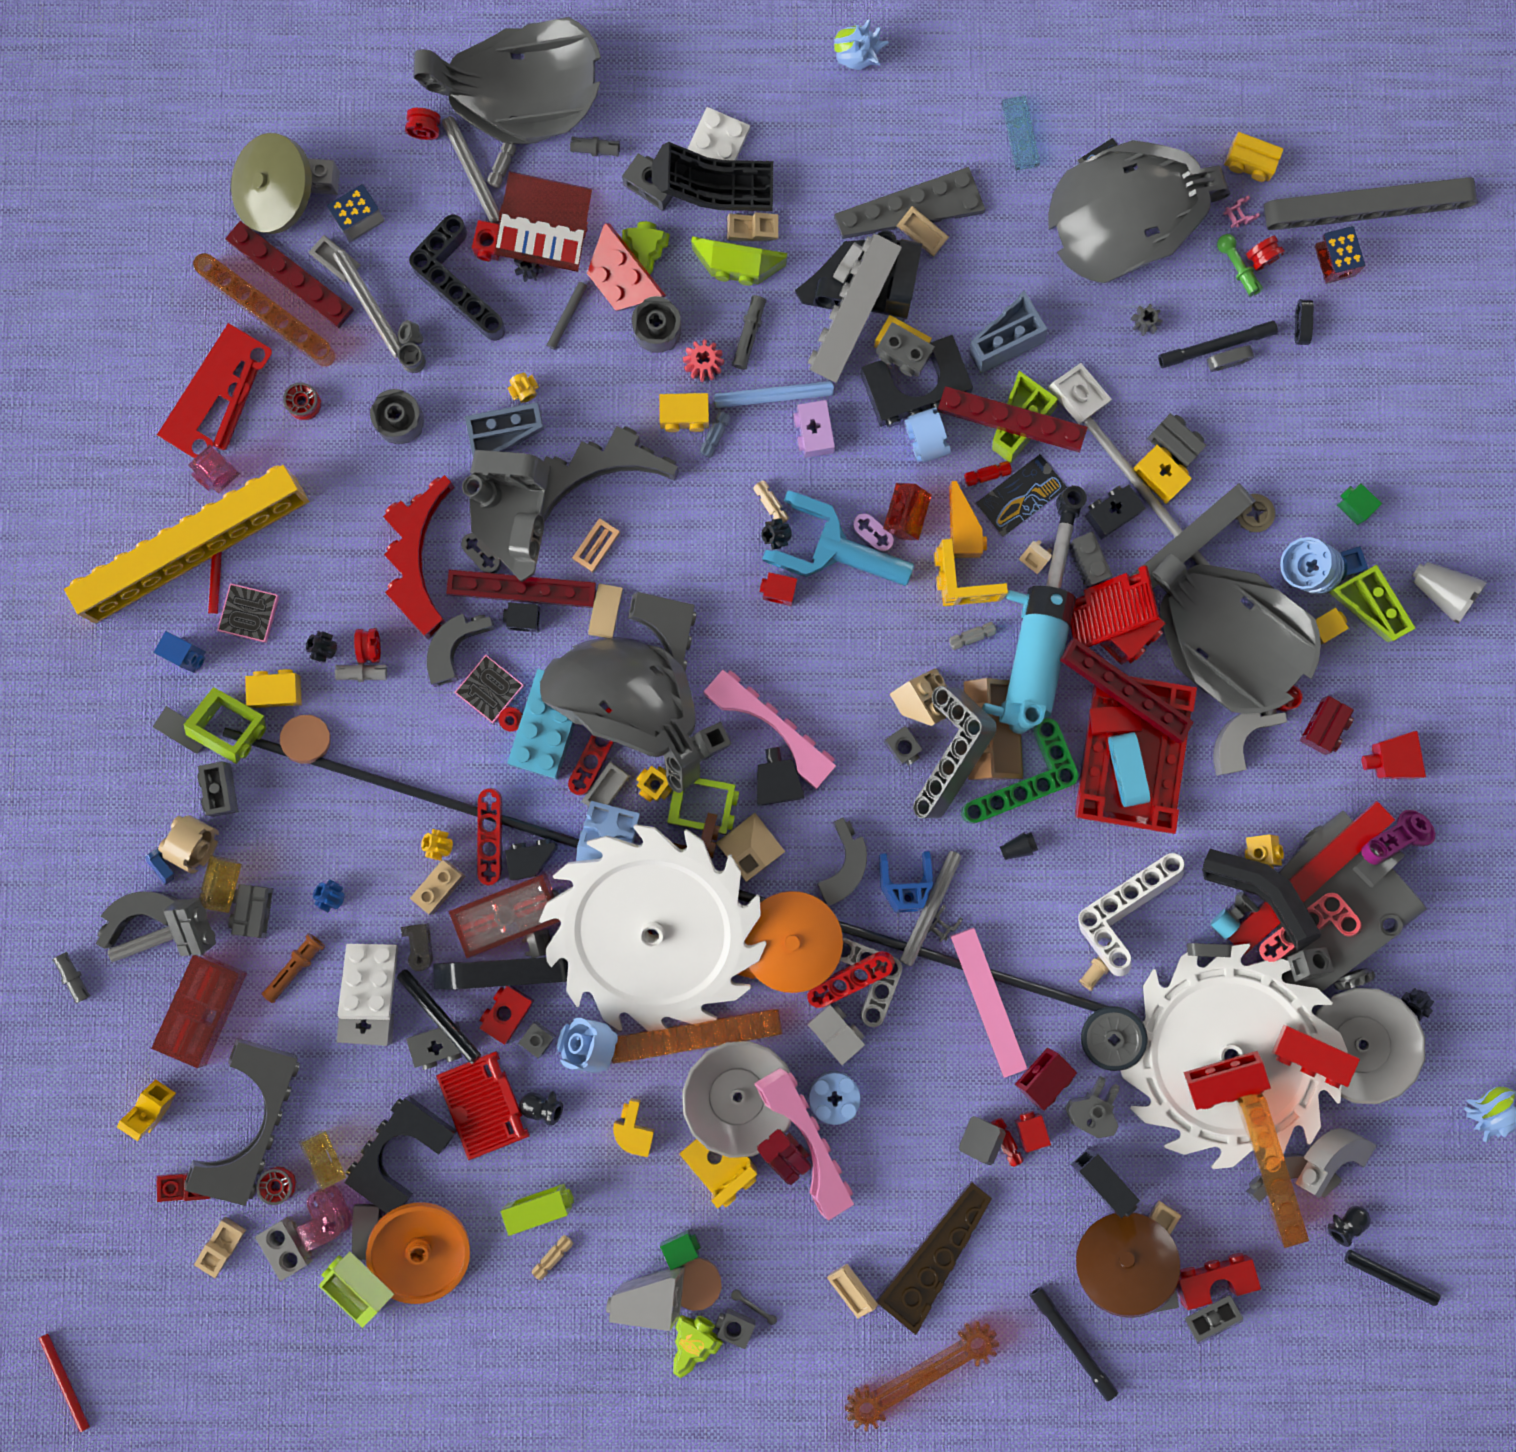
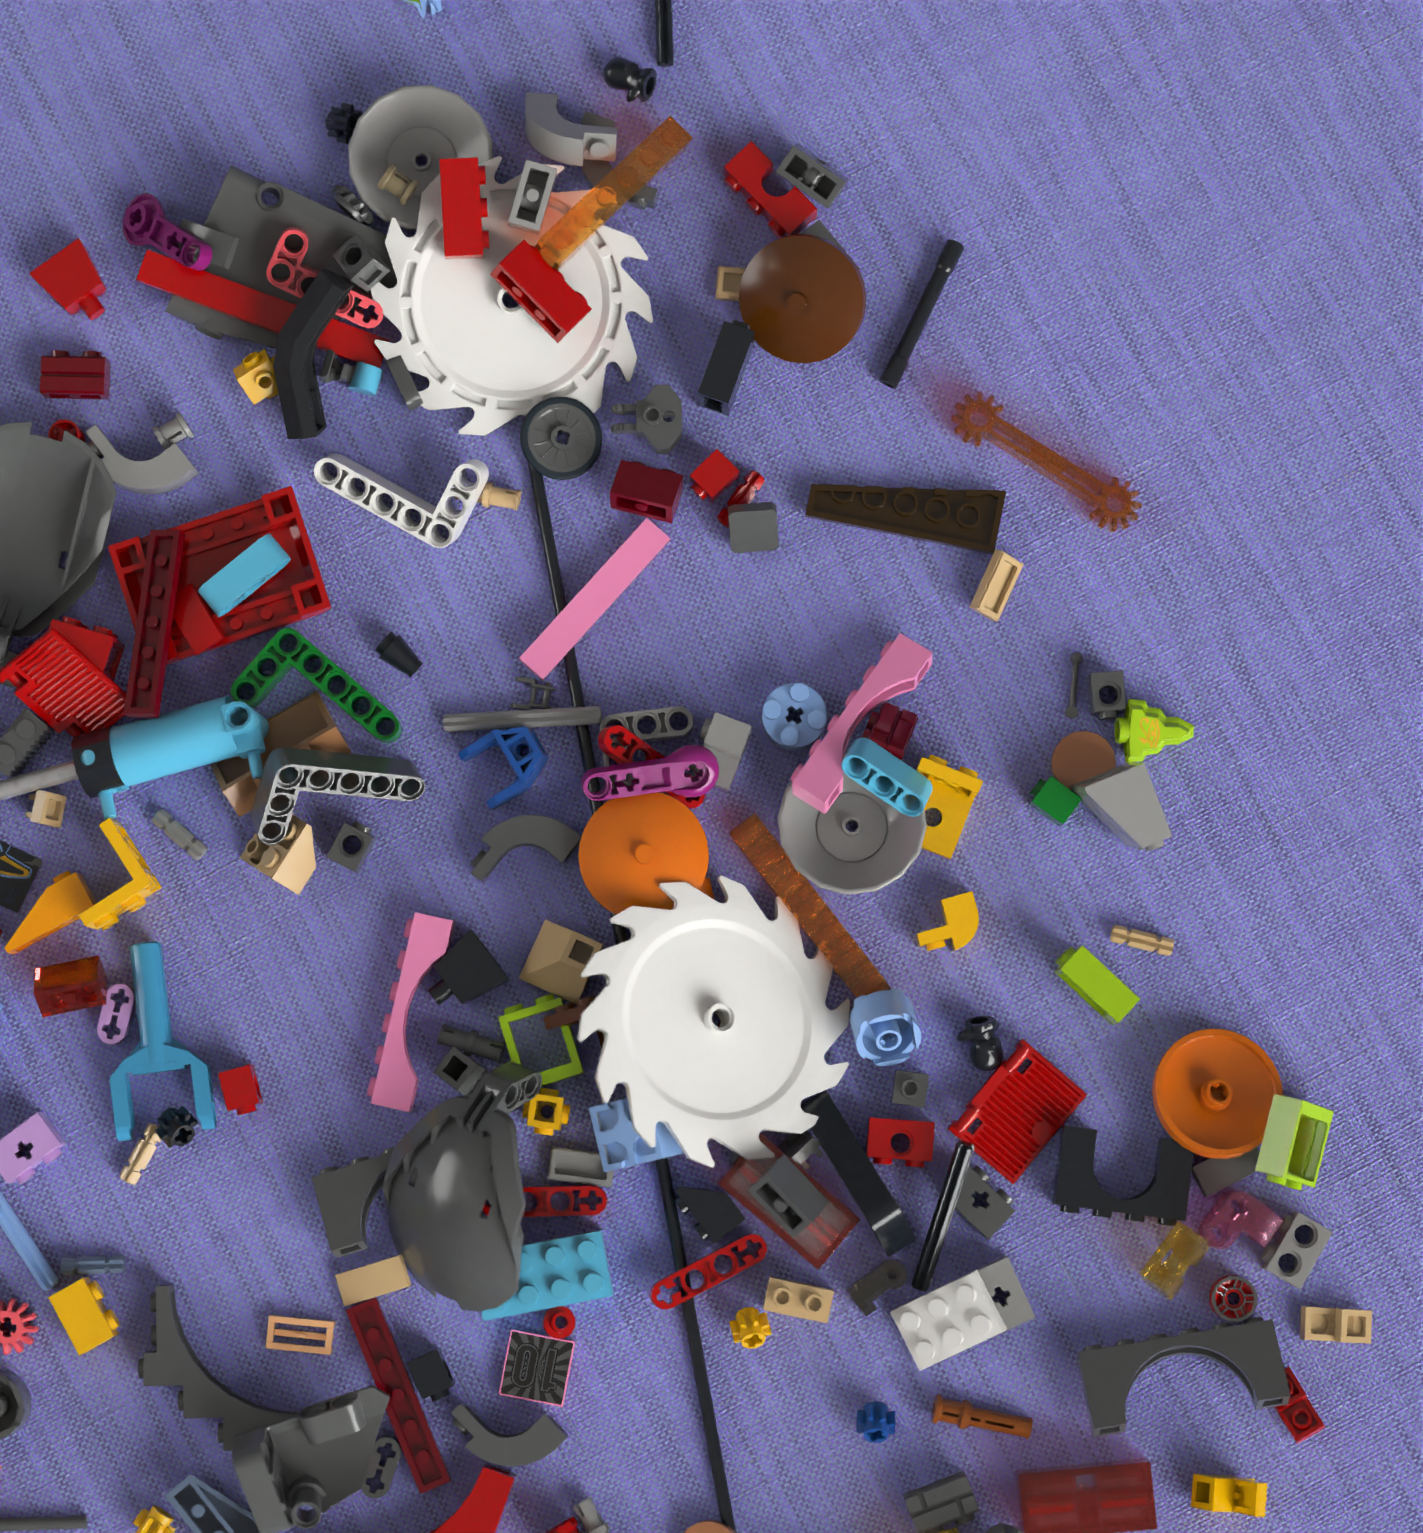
camera: 110 degrees left, 0 degrees up
(506, 917) = (788, 1196): none -> dark grey brick
(728, 757) = (471, 1043): none -> dark grey pin
(756, 1141) = (887, 777): none -> medium azure beam
(841, 981) = (658, 775): none -> magenta beam
(1255, 772) = (173, 431): none -> light grey bush
(1299, 1110) = (532, 197): none -> light grey brick
(1354, 1019) = (398, 184): none -> dark tan bush

